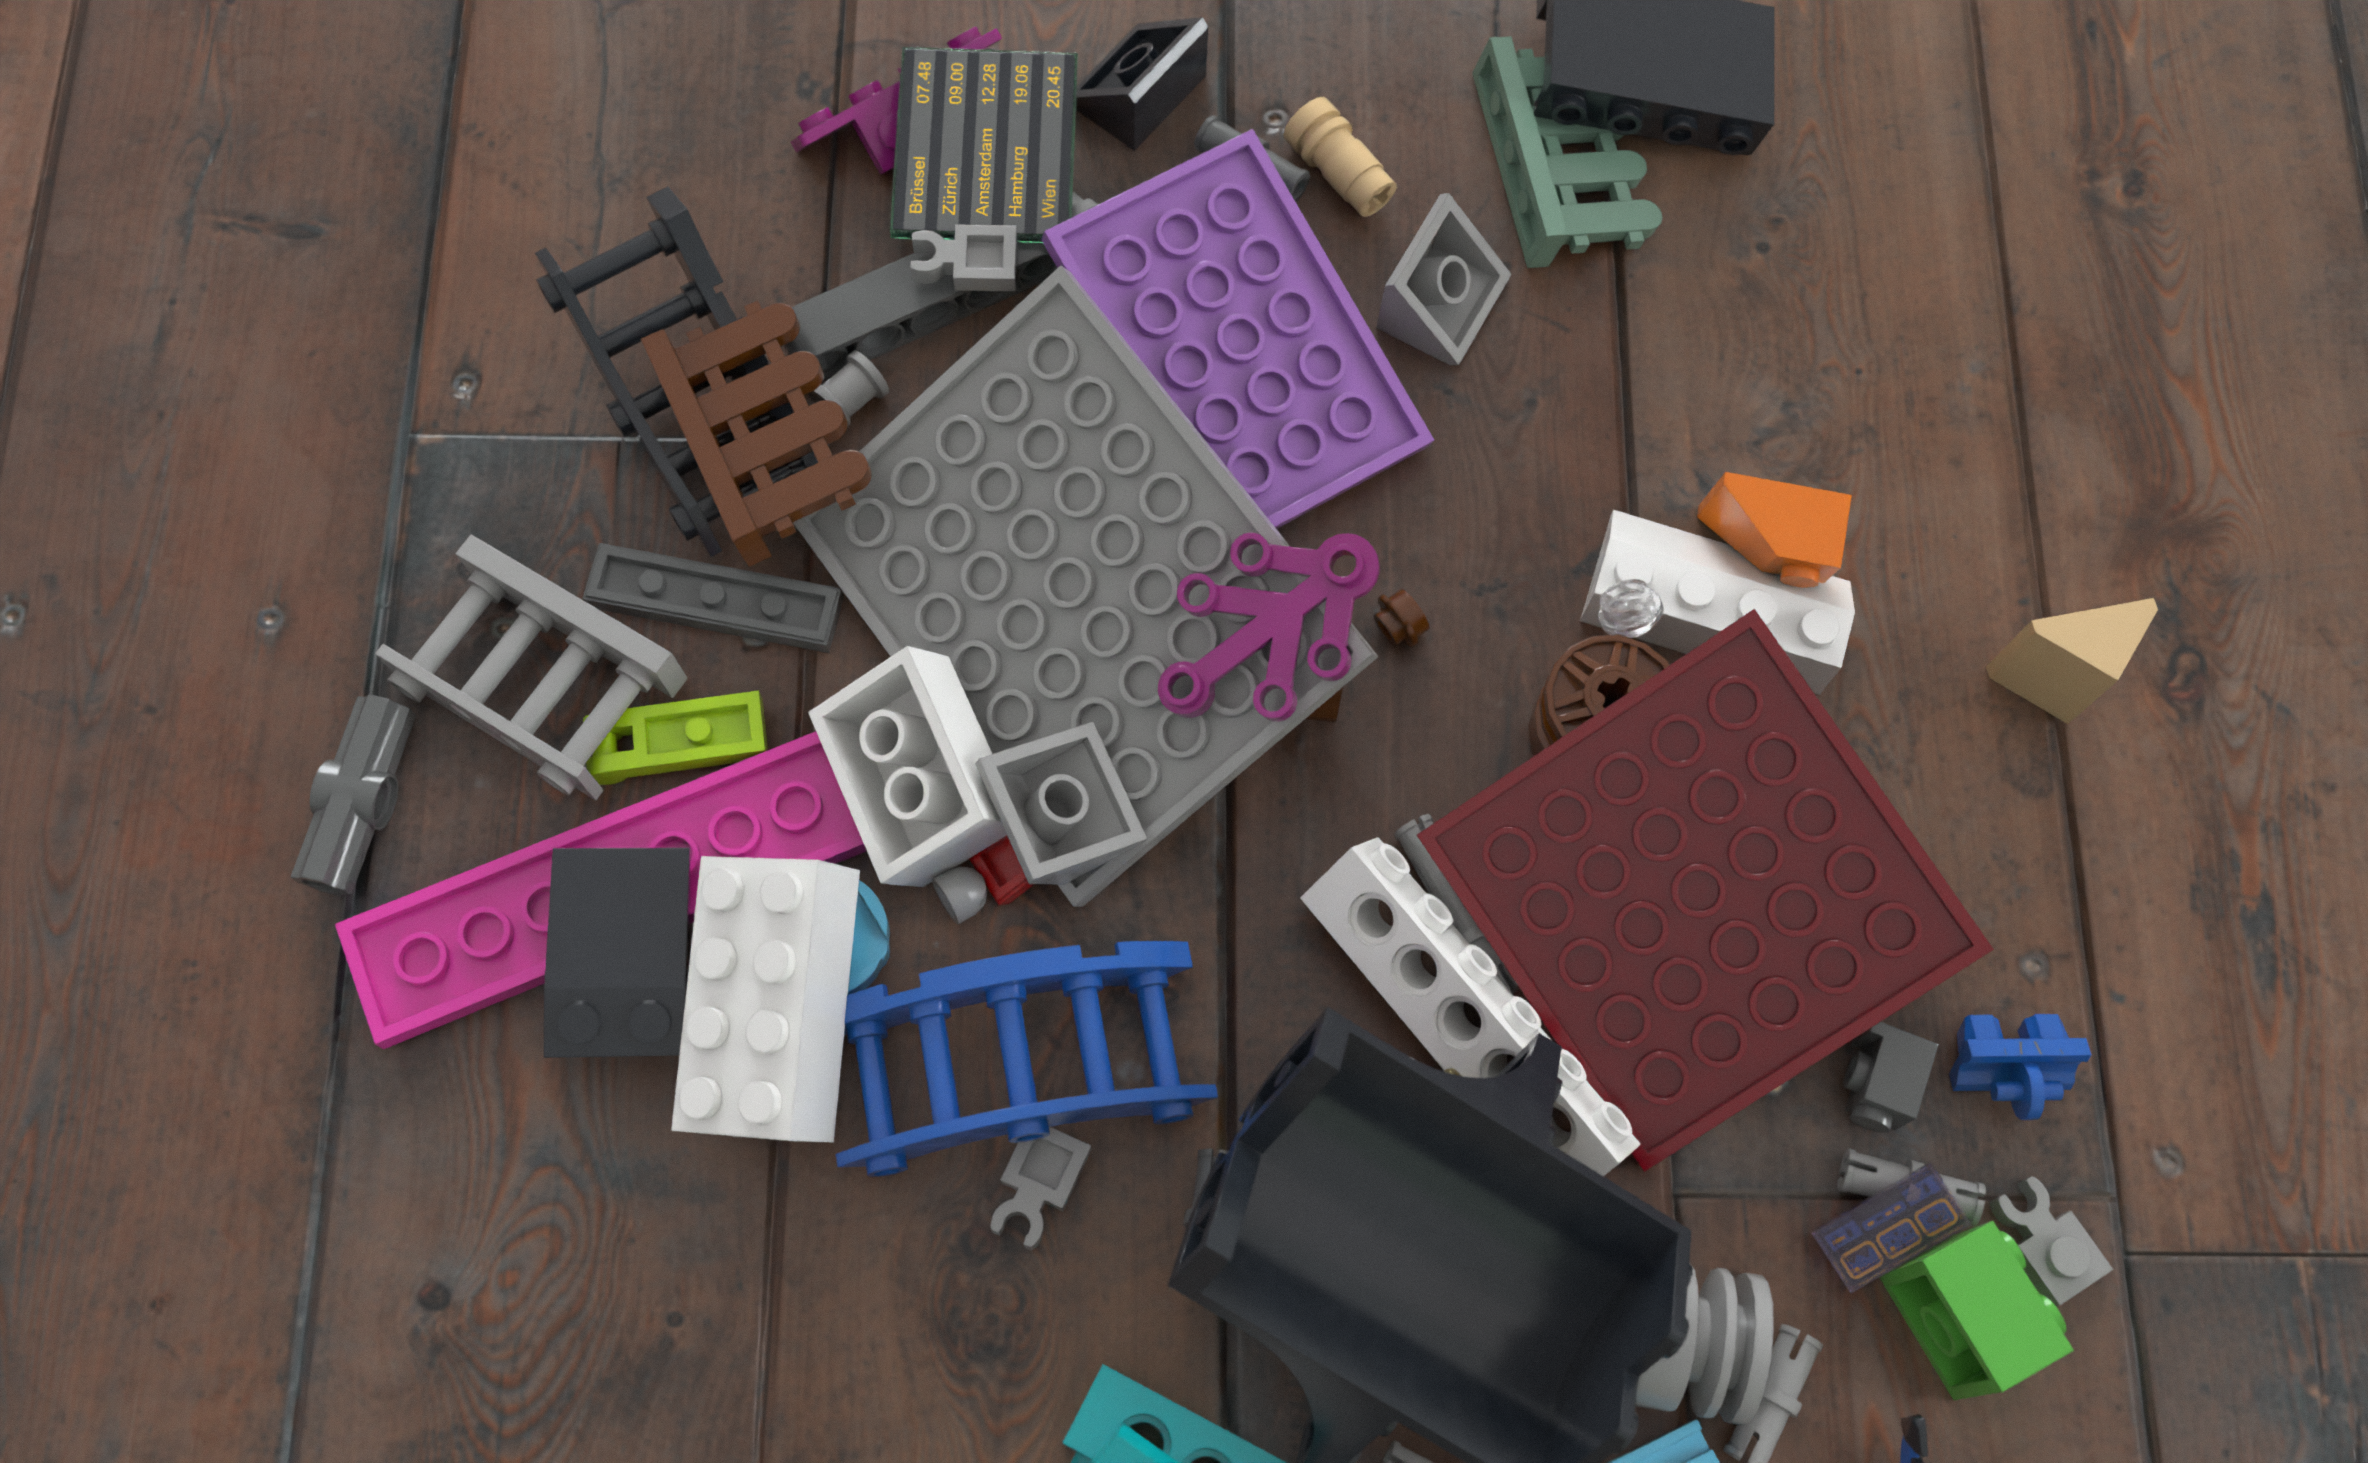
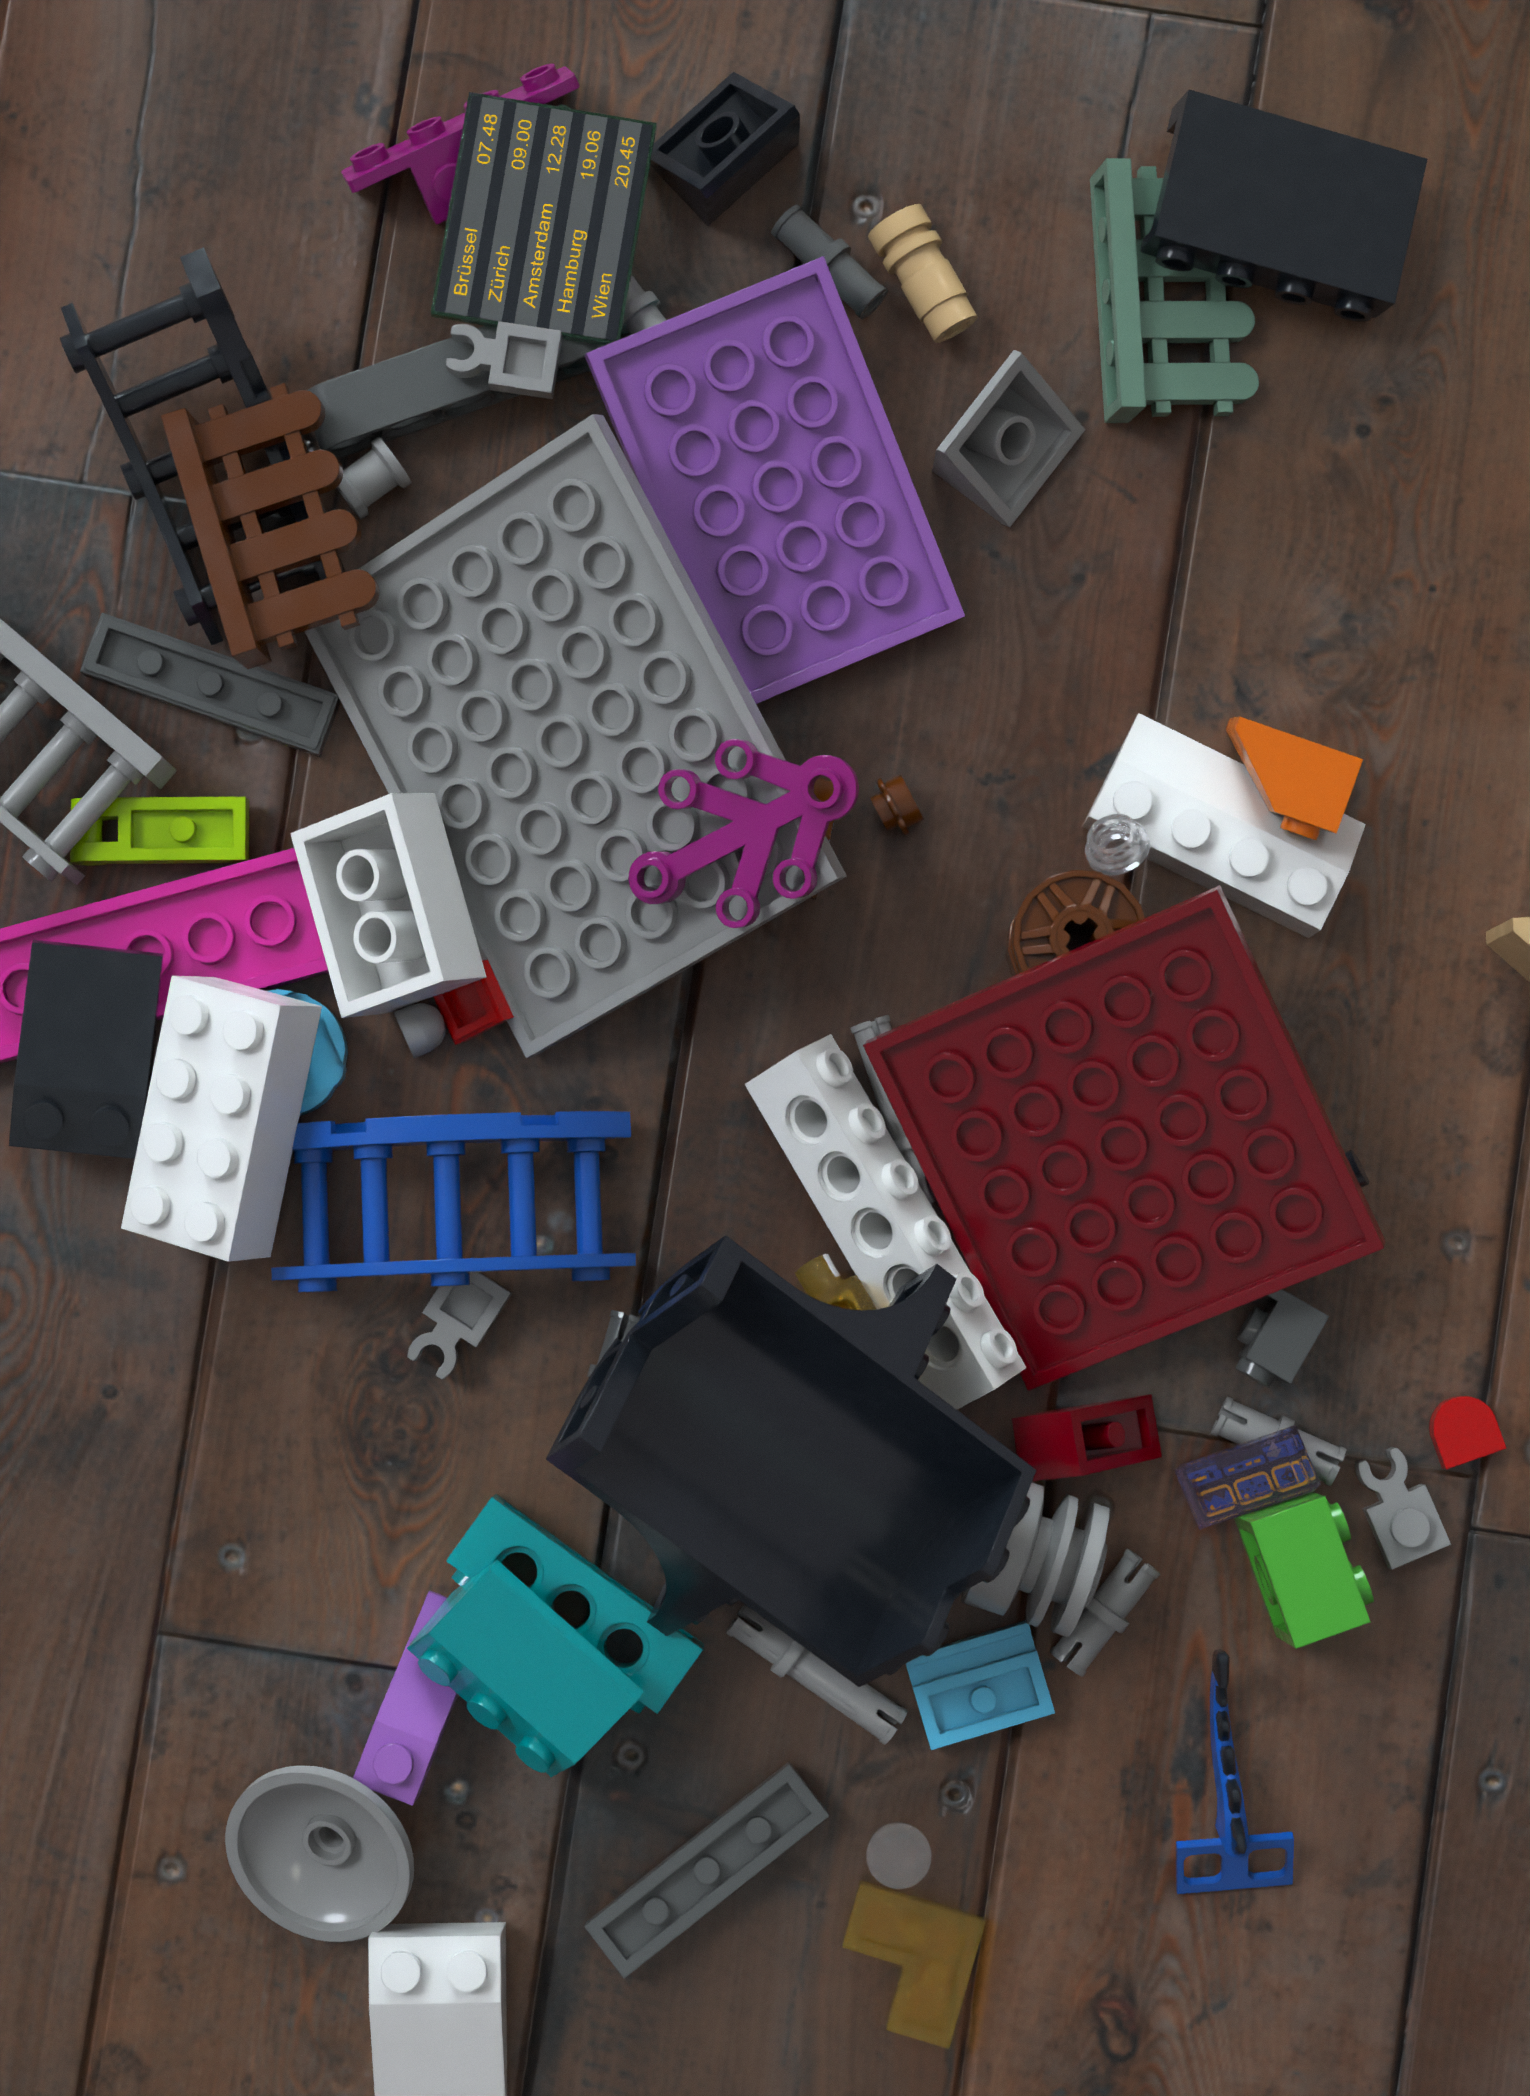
camera: 10 degrees right, 15 degrees up
(1061, 804) = (522, 966): light grey slope -> none
(1725, 1206) = (1088, 1437): none -> dark red slope
(2020, 1069) = (1409, 1348): blue hips -> none
(2093, 1150) = (1464, 1431): none -> red tile

